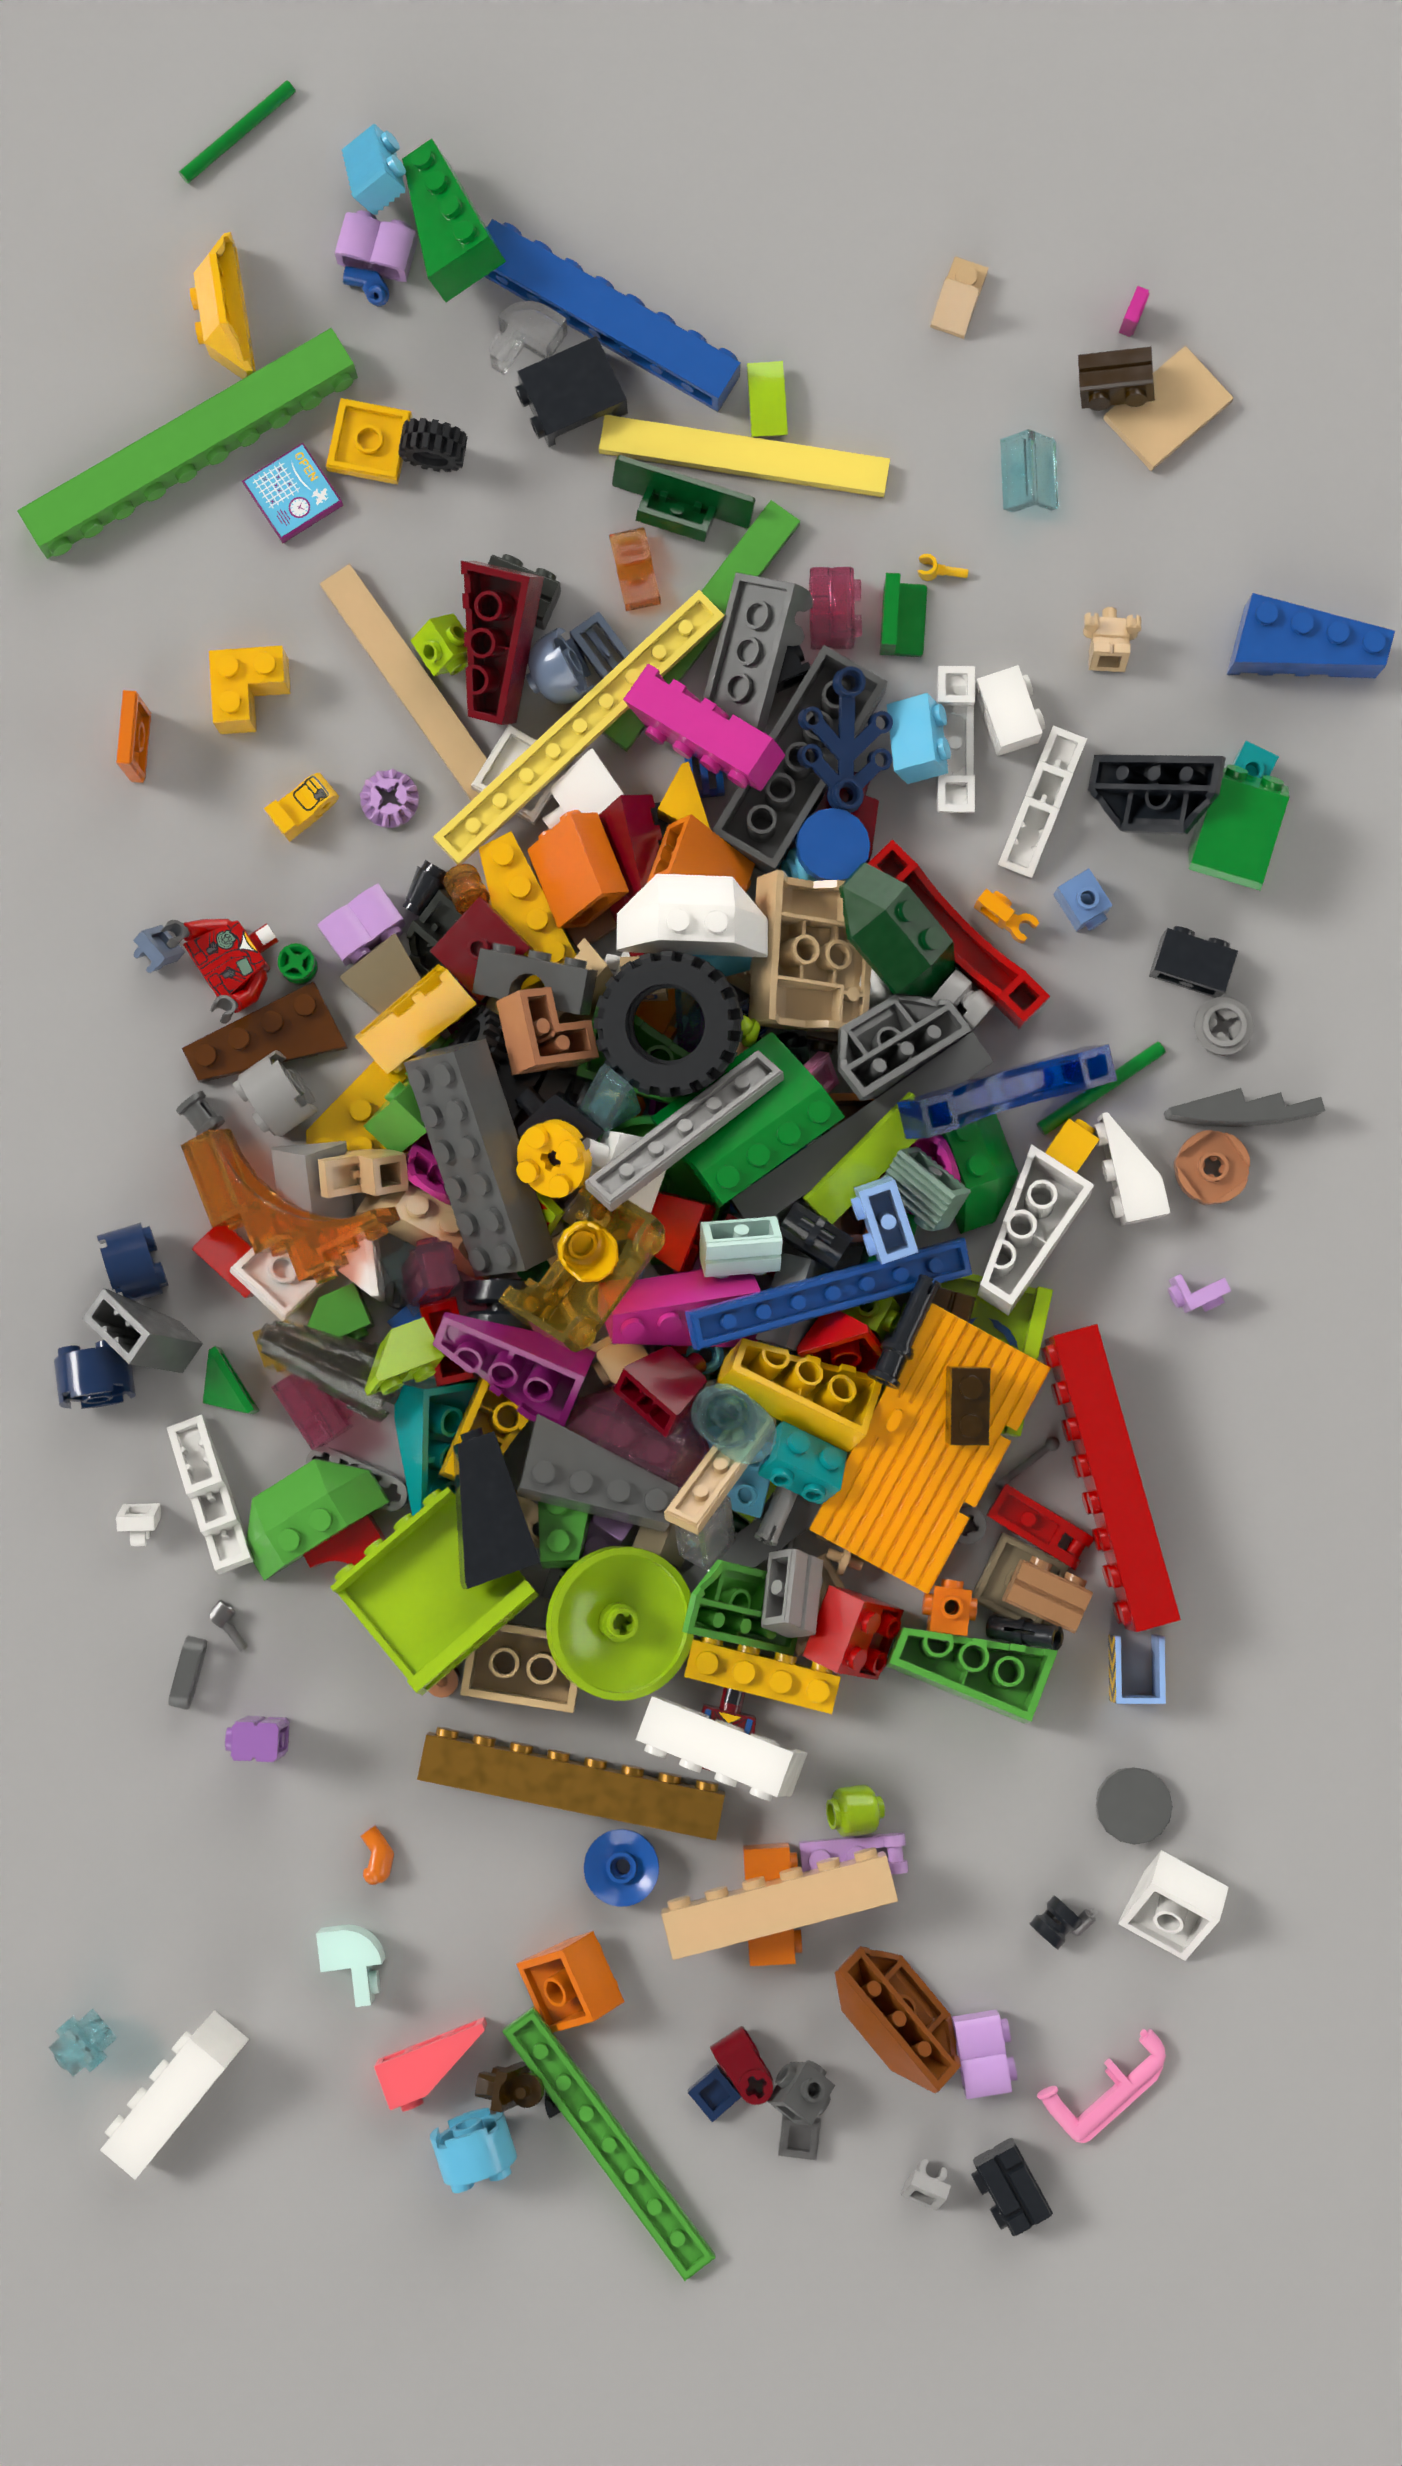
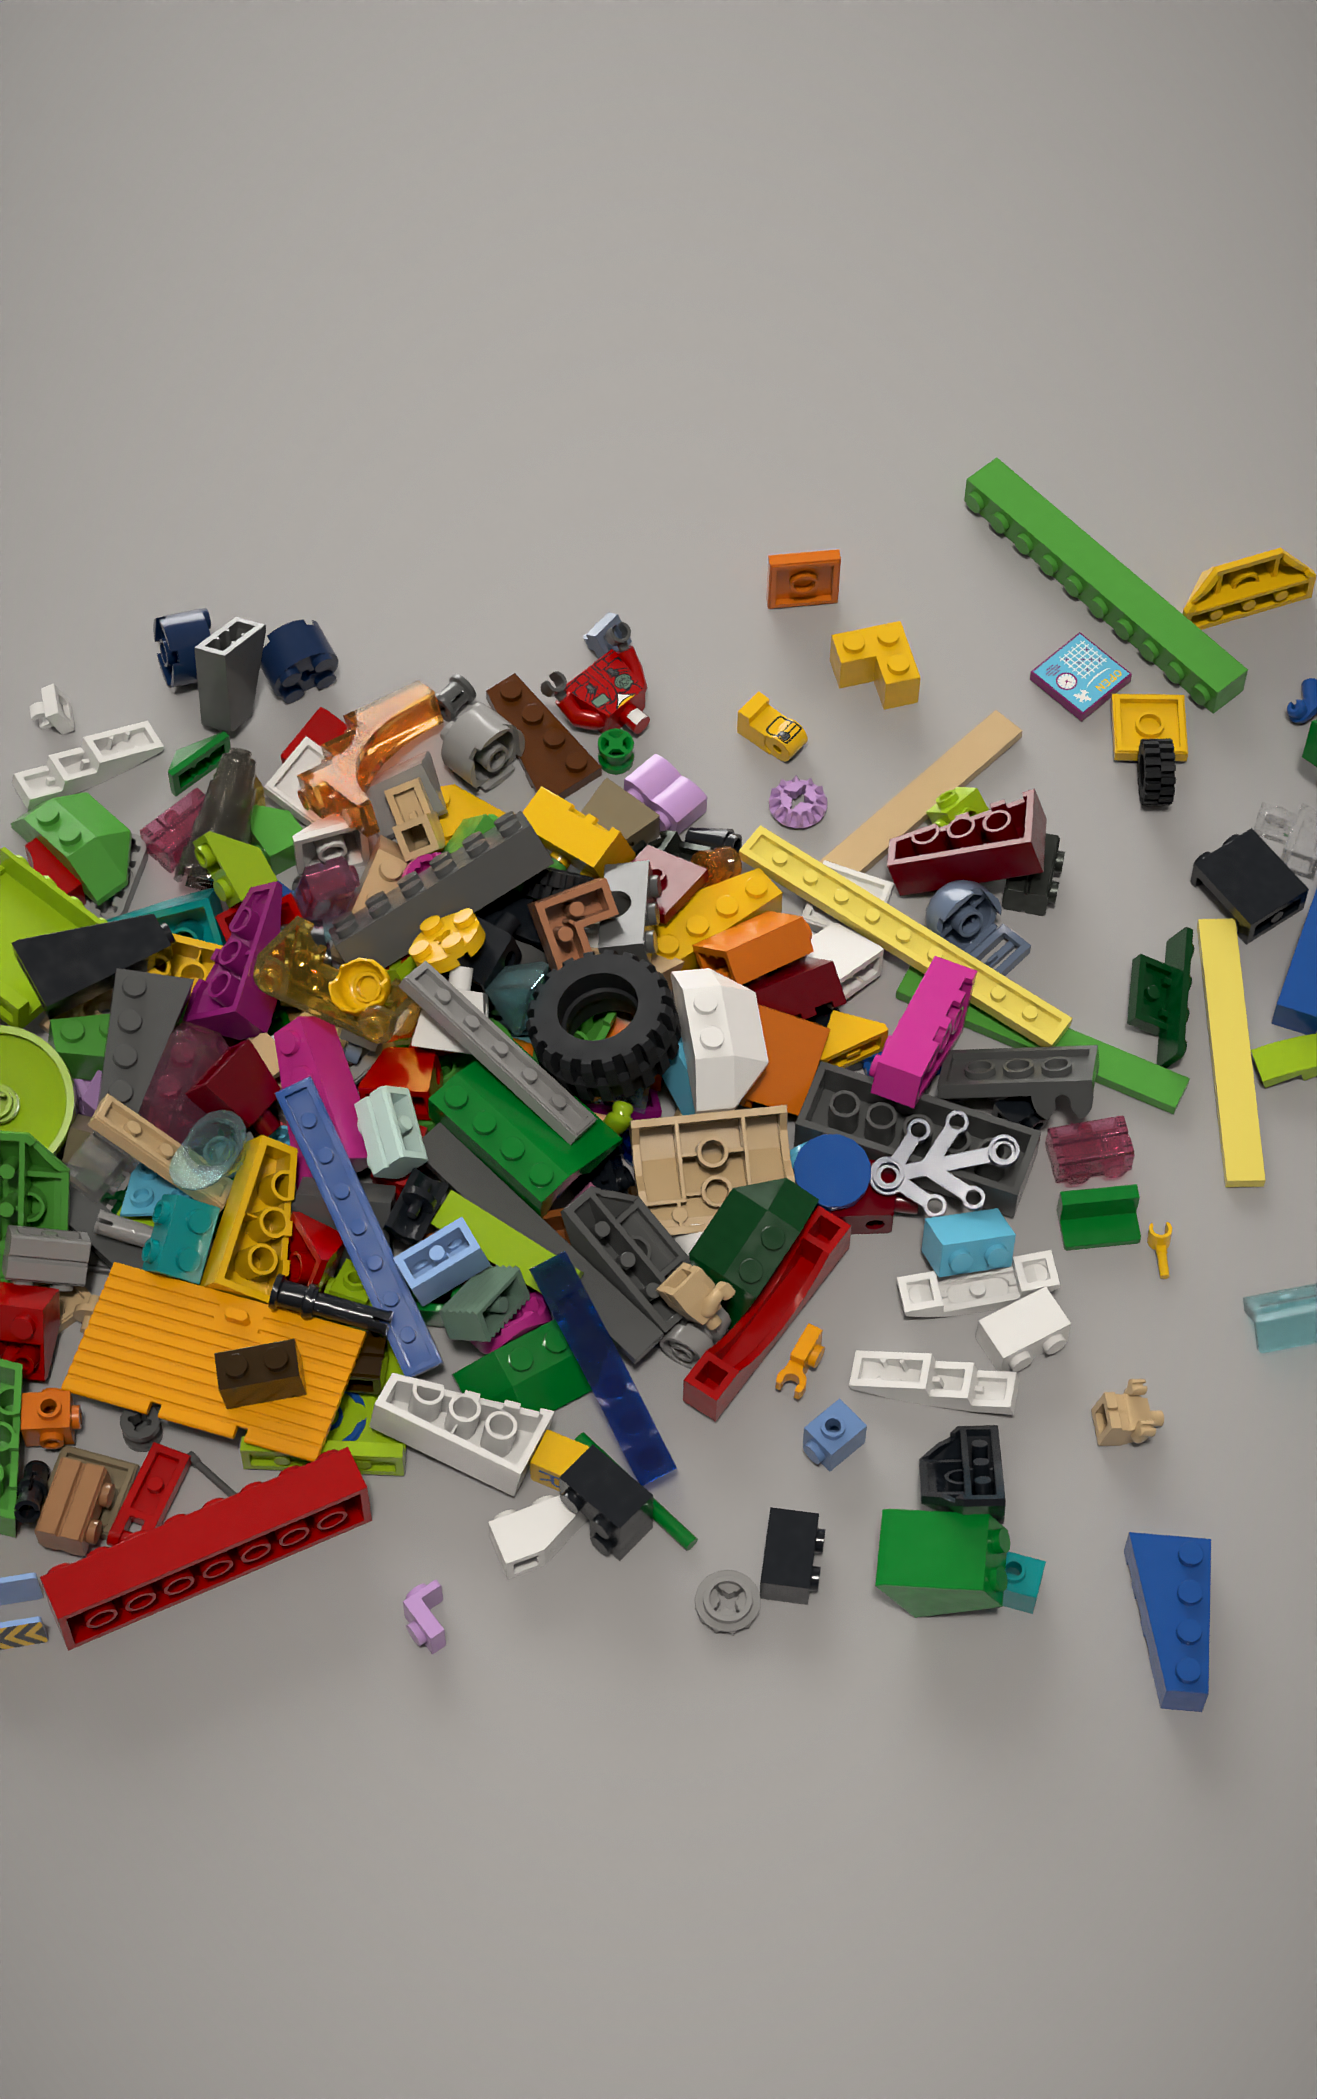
camera: 80 degrees right, 25 degrees down
(635, 569) = (1088, 972): clear orange slope -> none
(951, 997) = (694, 1295): none -> tan piece
(1133, 1108) = (611, 1499): none -> black brick
(1232, 1111) = (635, 1622): dark grey slope -> none
(1233, 1168) = (568, 1635): nougat plate -> none

